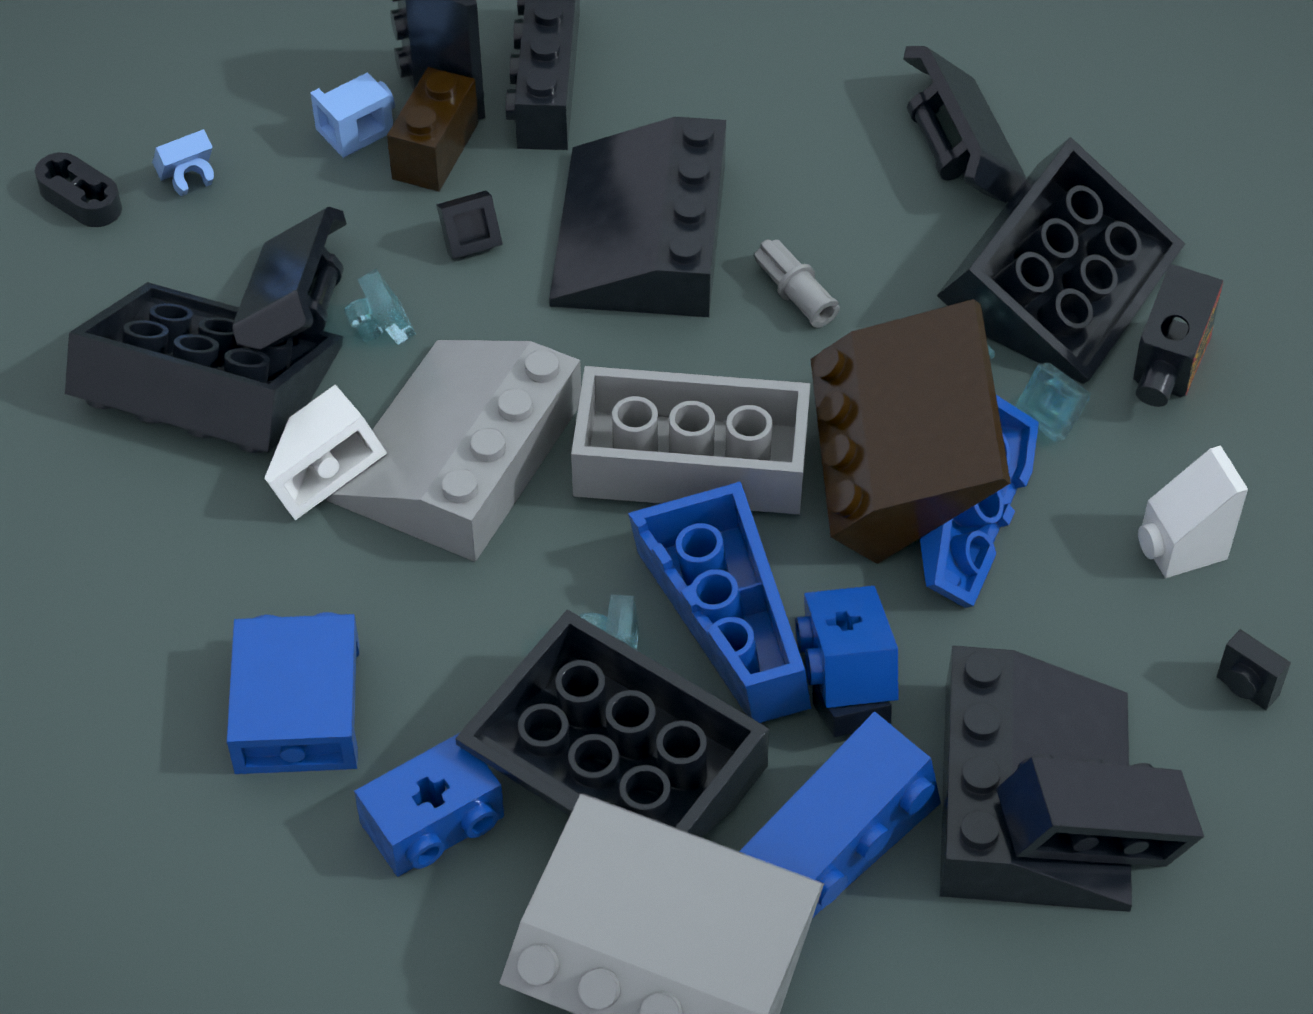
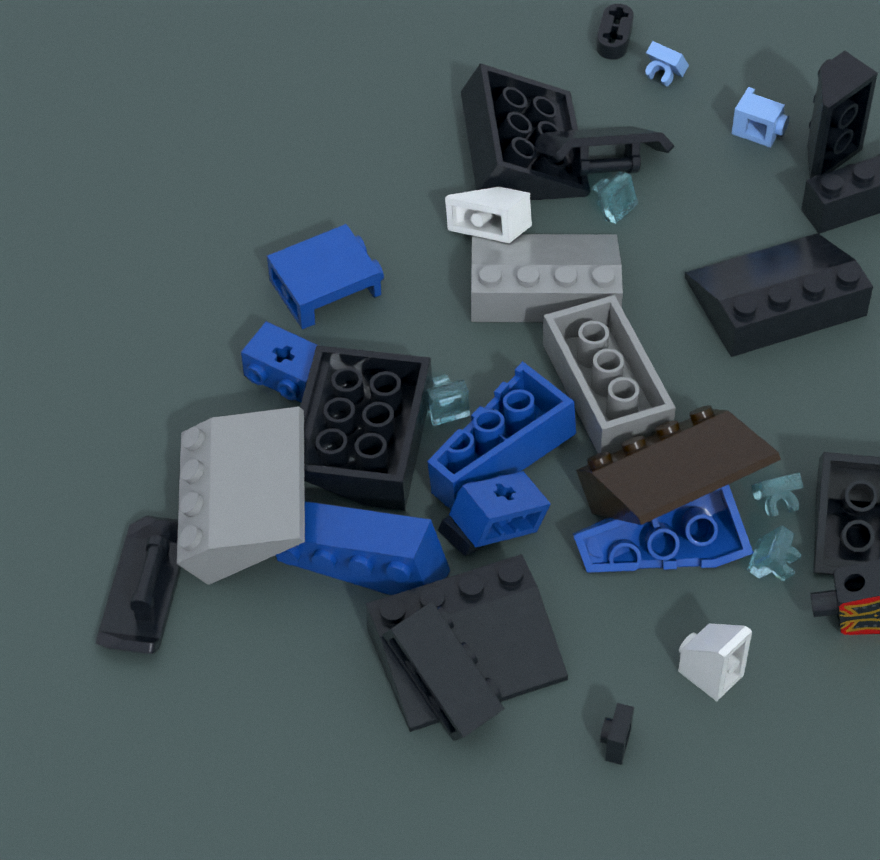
camera: 65 degrees right, 0 degrees up
(433, 129) = (771, 157): dark brown brick -> none
(469, 224) = (709, 207): black tile -> none
(797, 283) = (782, 386): light grey axle -> none

